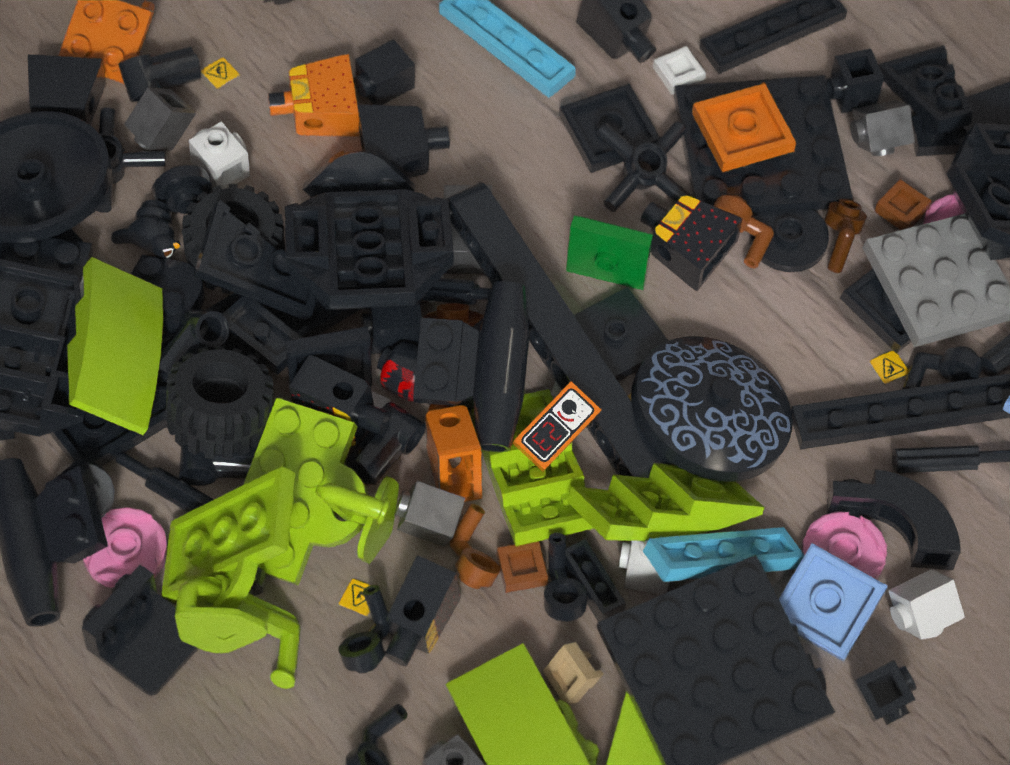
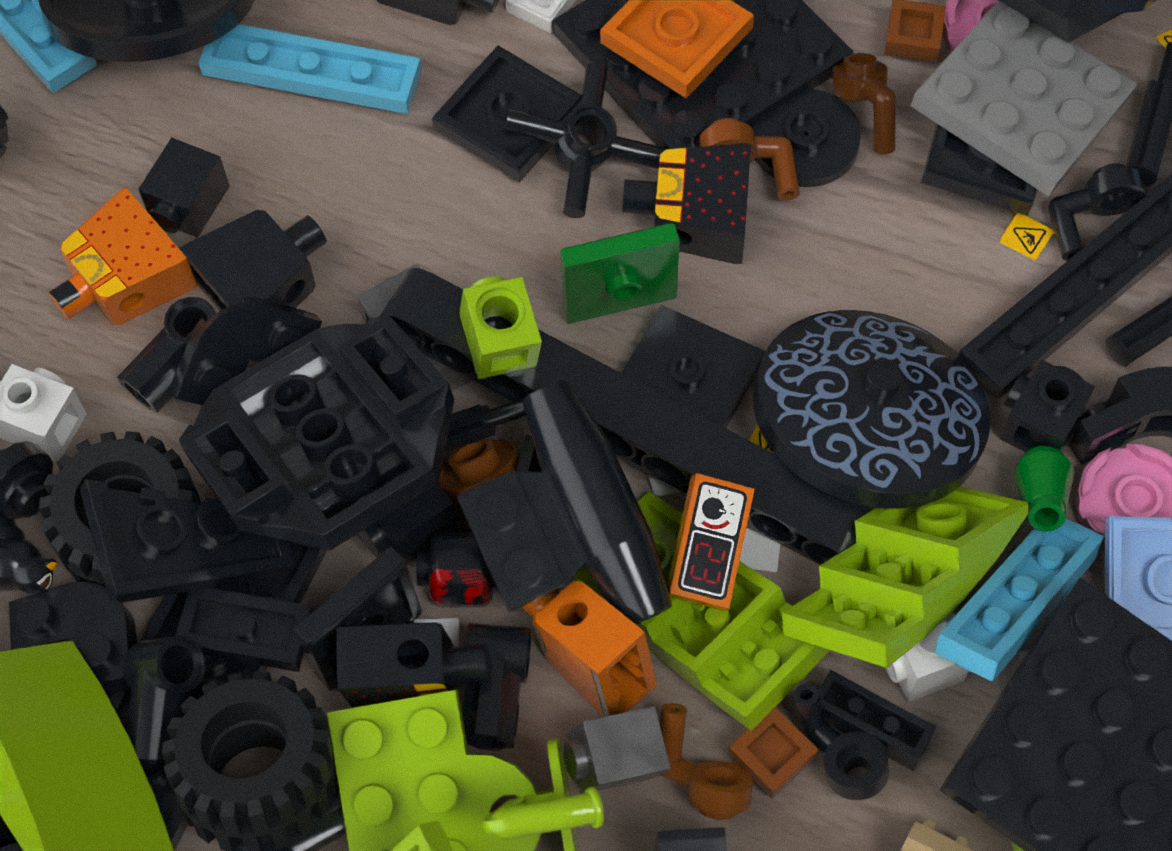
camera: 25 degrees left, 5 degrees up
(300, 168) = (155, 366): none -> black piece
(503, 252) = (500, 349): none -> lime brick
(591, 457) = (760, 551): none -> white sticker
(789, 508) = (1045, 482): none -> green cone
(819, 465) = (1045, 407): none -> black brick

